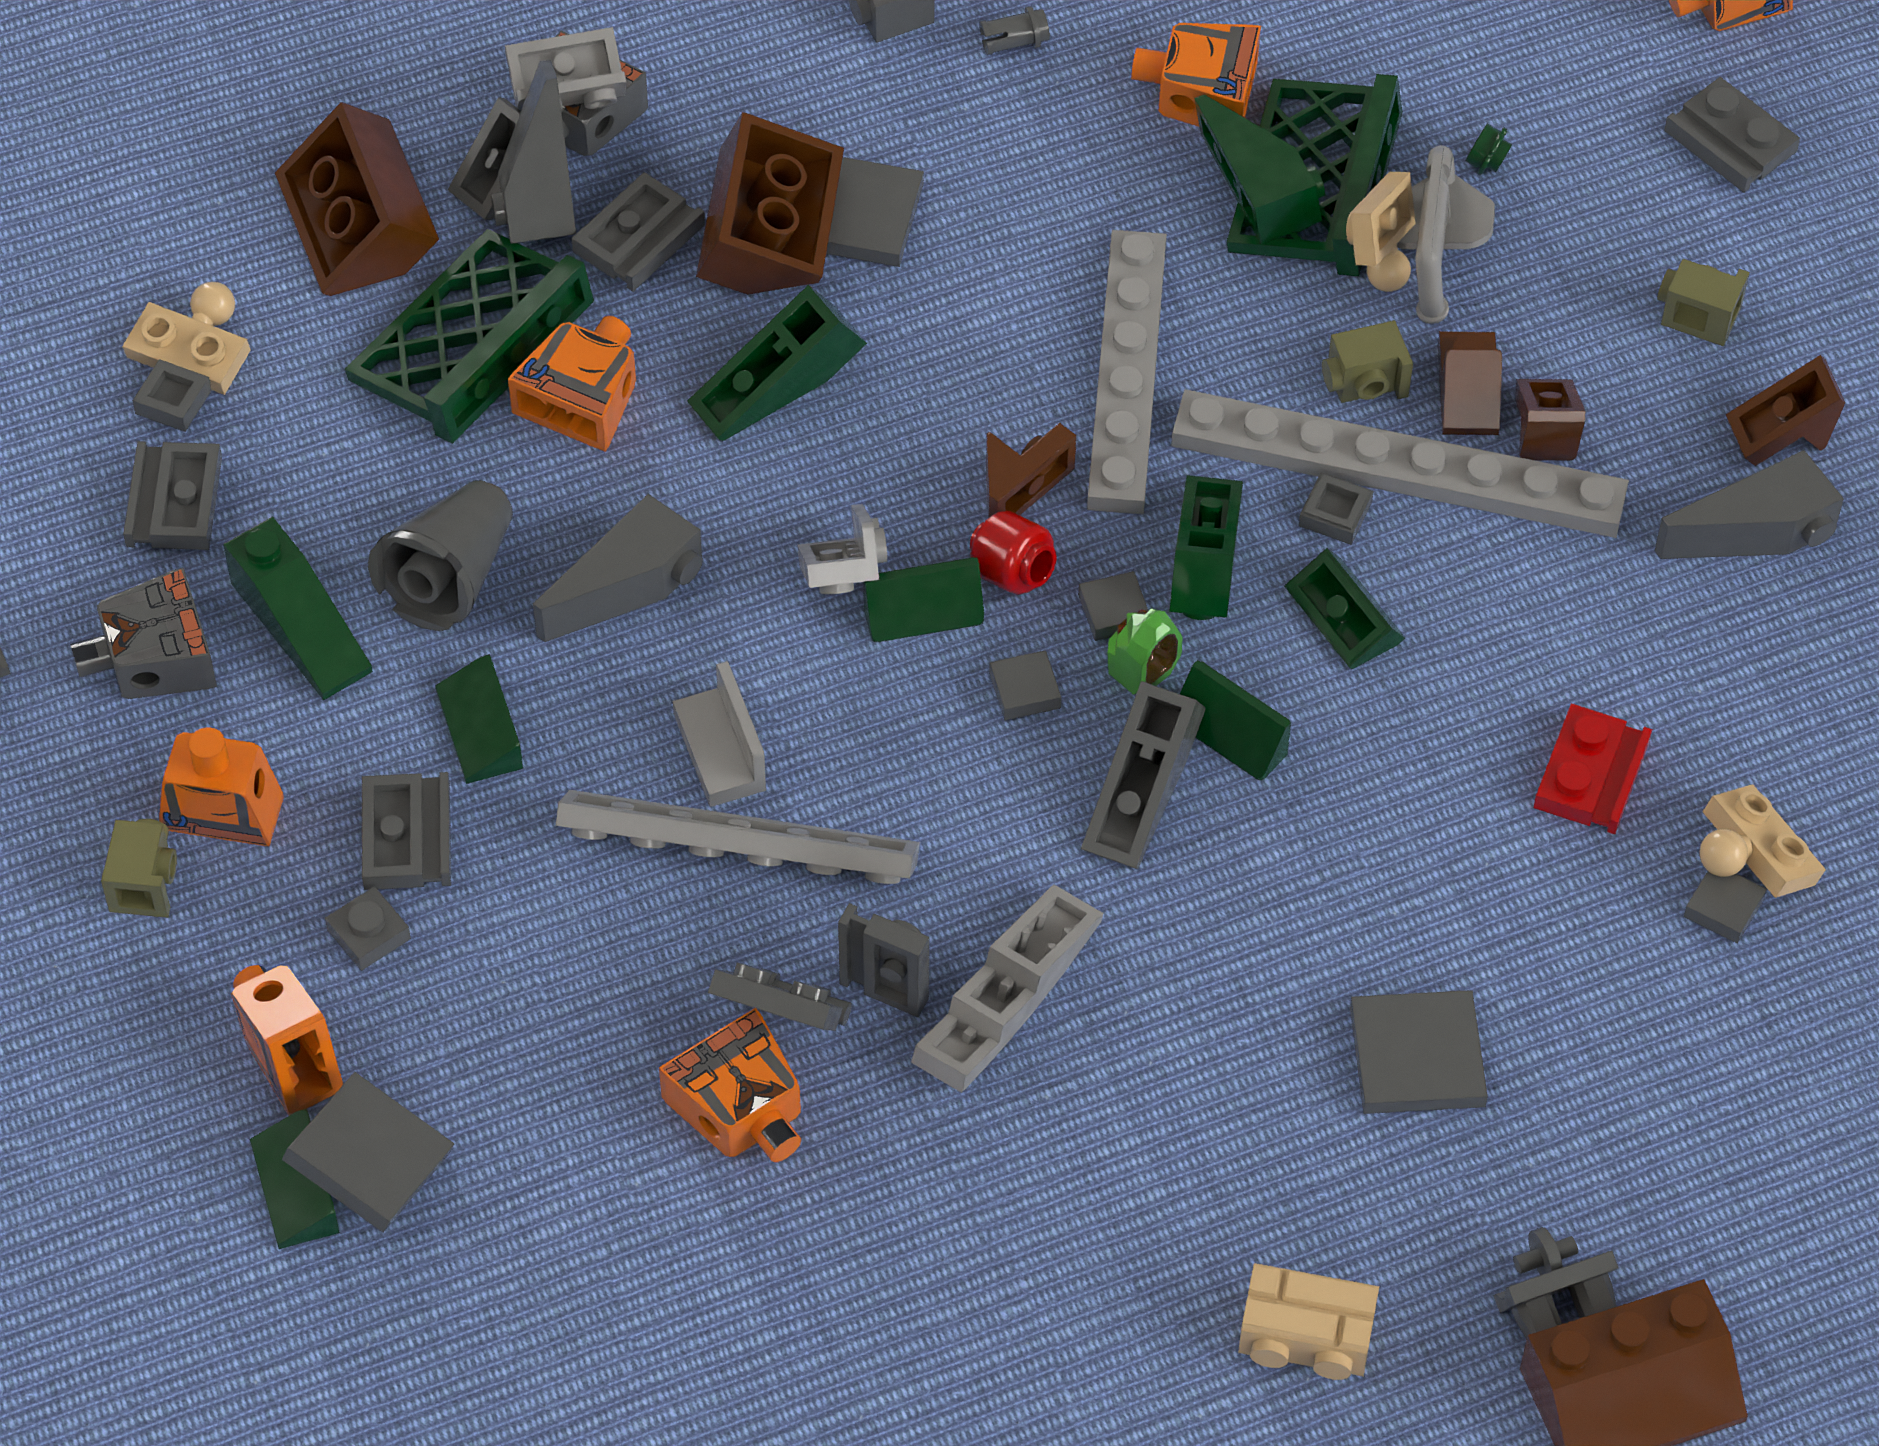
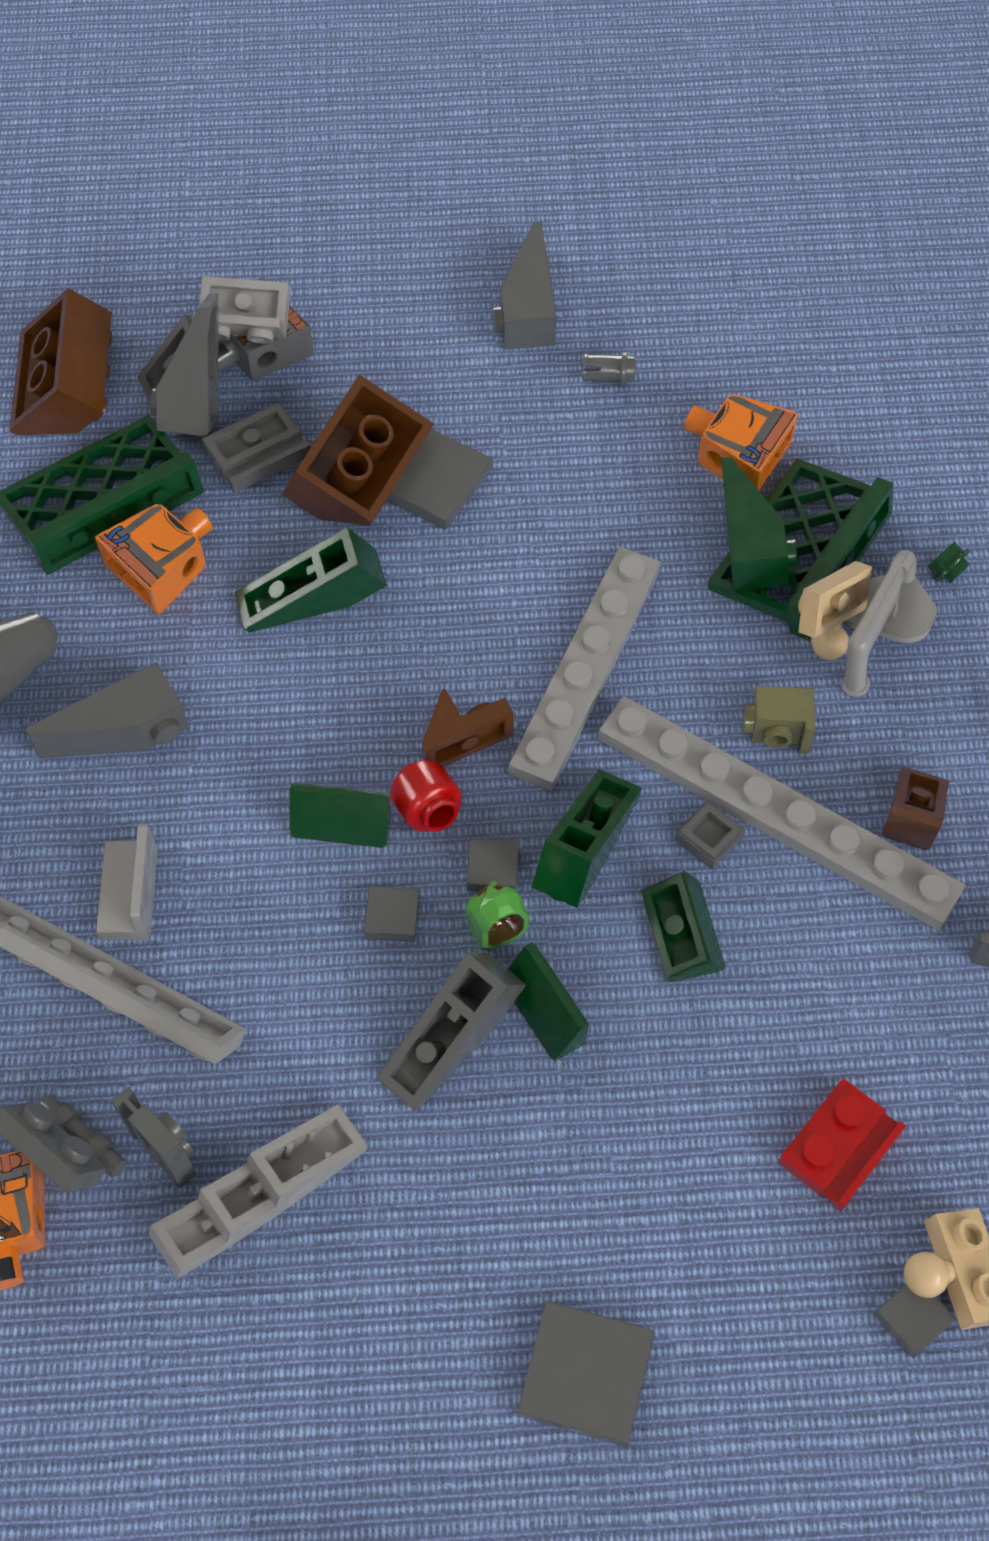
camera: 20 degrees right, 5 degrees up
(841, 563) = (283, 763): light grey bracket -> none
(1469, 383) = (861, 757): reddish brown slope -> none

